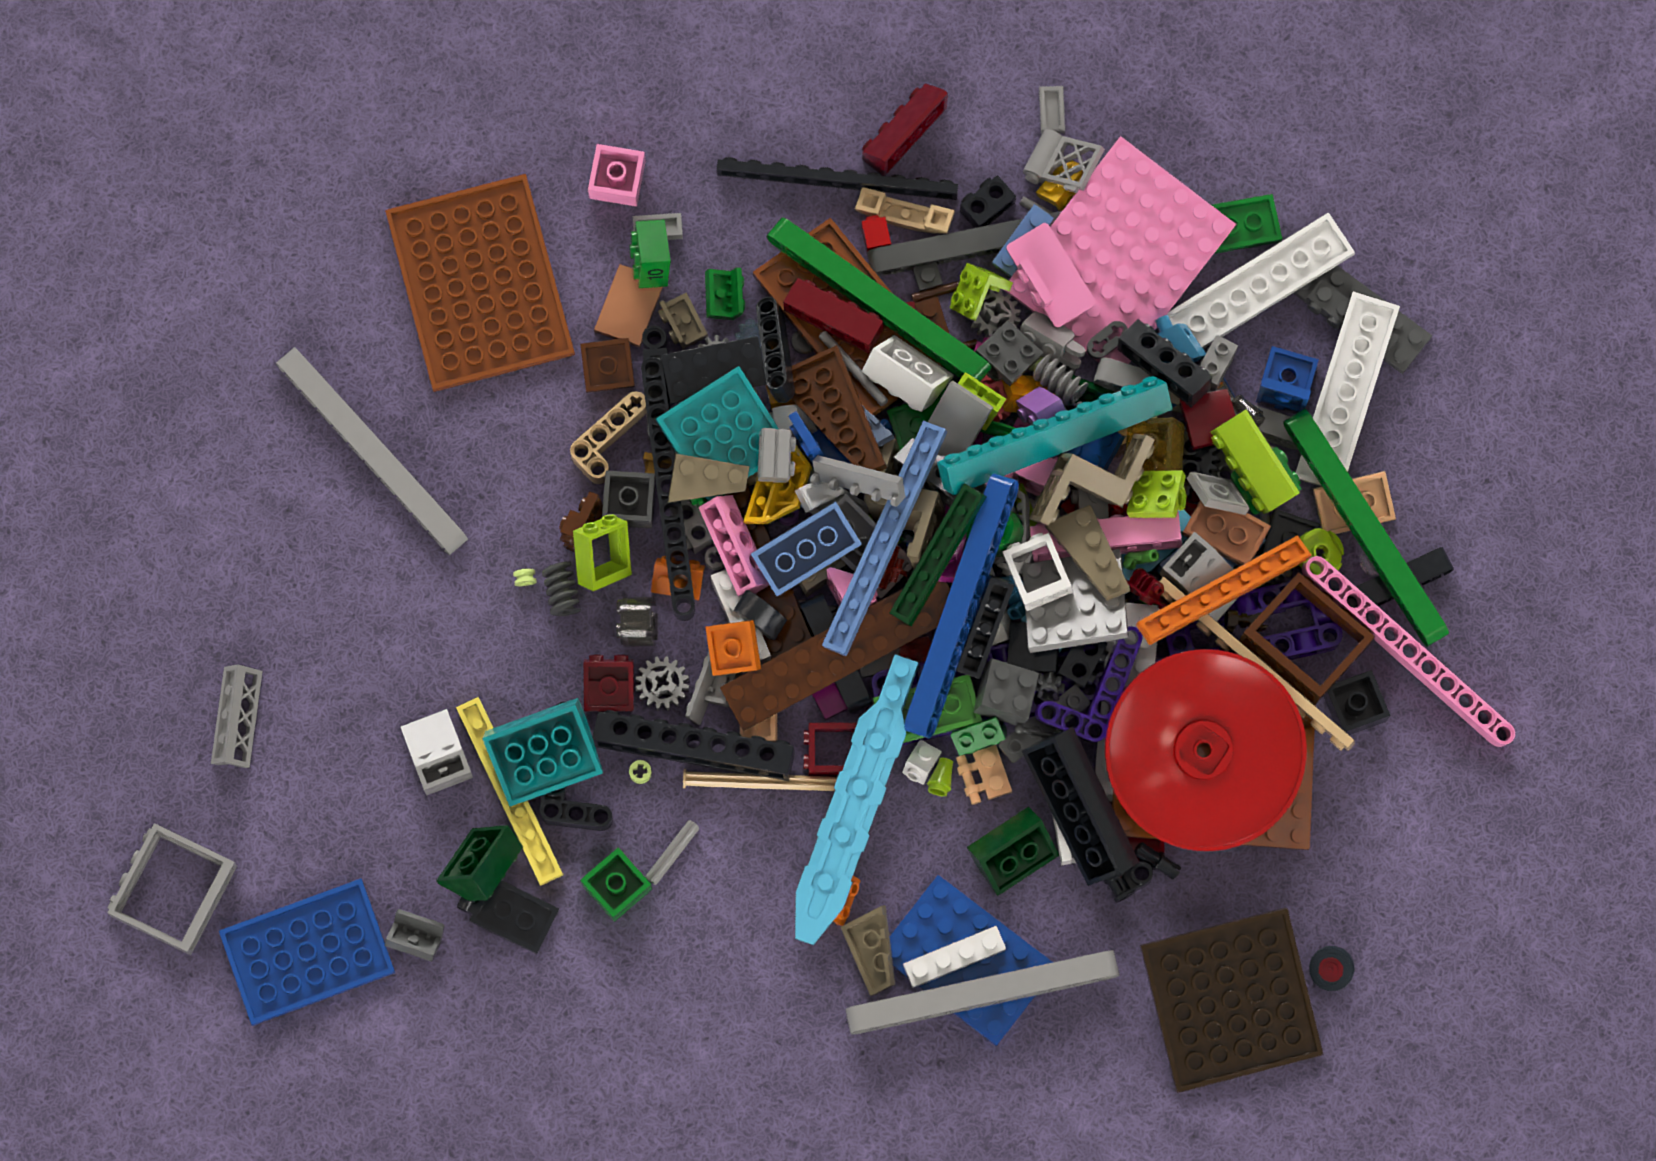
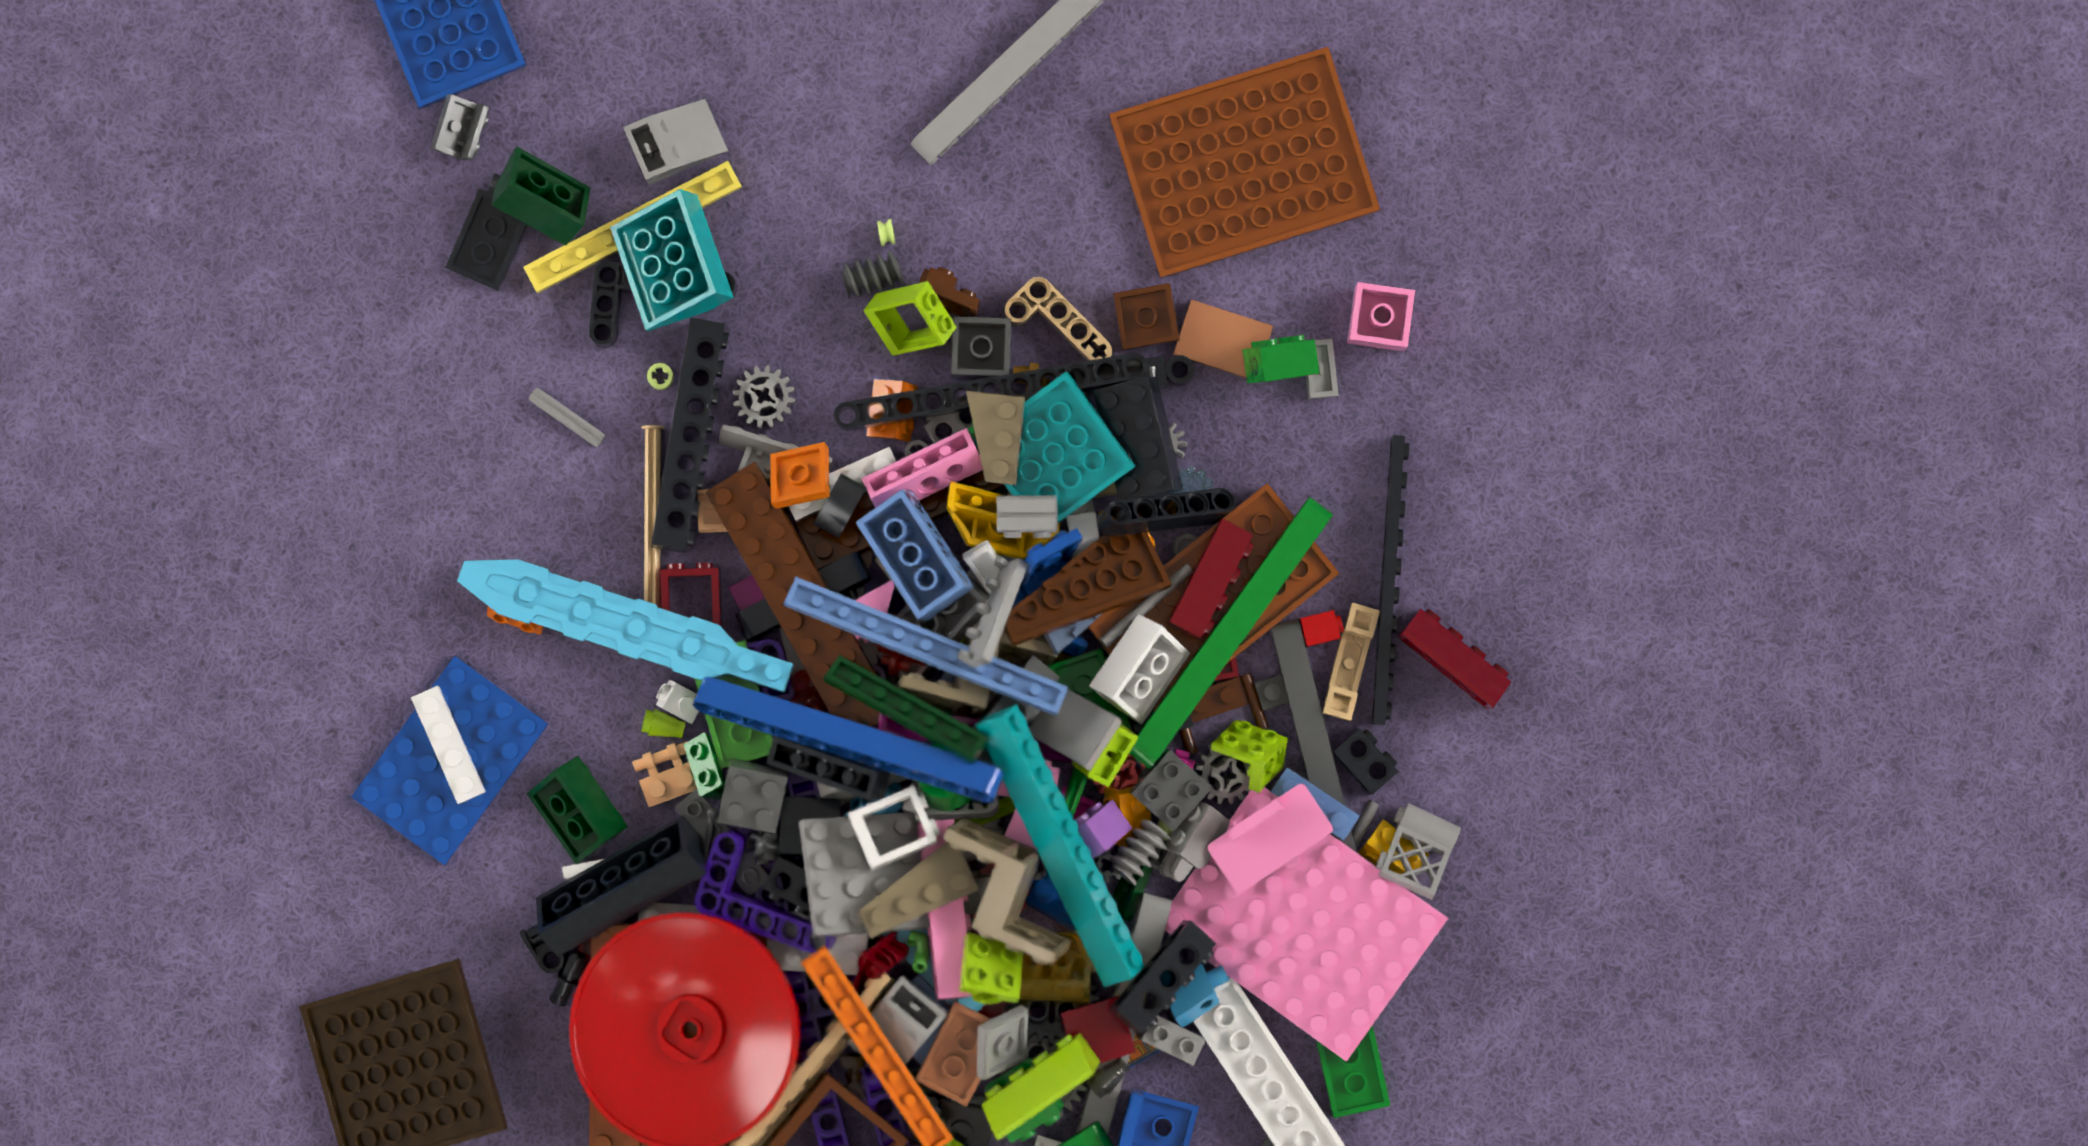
camera: 85 degrees right, 10 degrees up
(608, 683) = (761, 334): dark red plate -> none
(616, 884) = (522, 353): green brick -> none
(637, 621) = (833, 364): clear smoke brick -> none
(684, 321) = (1204, 403): dark tan bracket -> none
(724, 293) = (1240, 450): green bracket -> none
(871, 949) = (456, 649): dark tan wing -> none
(982, 992) = (405, 778): light grey beam -> none
(1052, 108) = (1489, 836): light grey tile -> none
(1103, 335) = (1200, 902): dark grey beam -> none

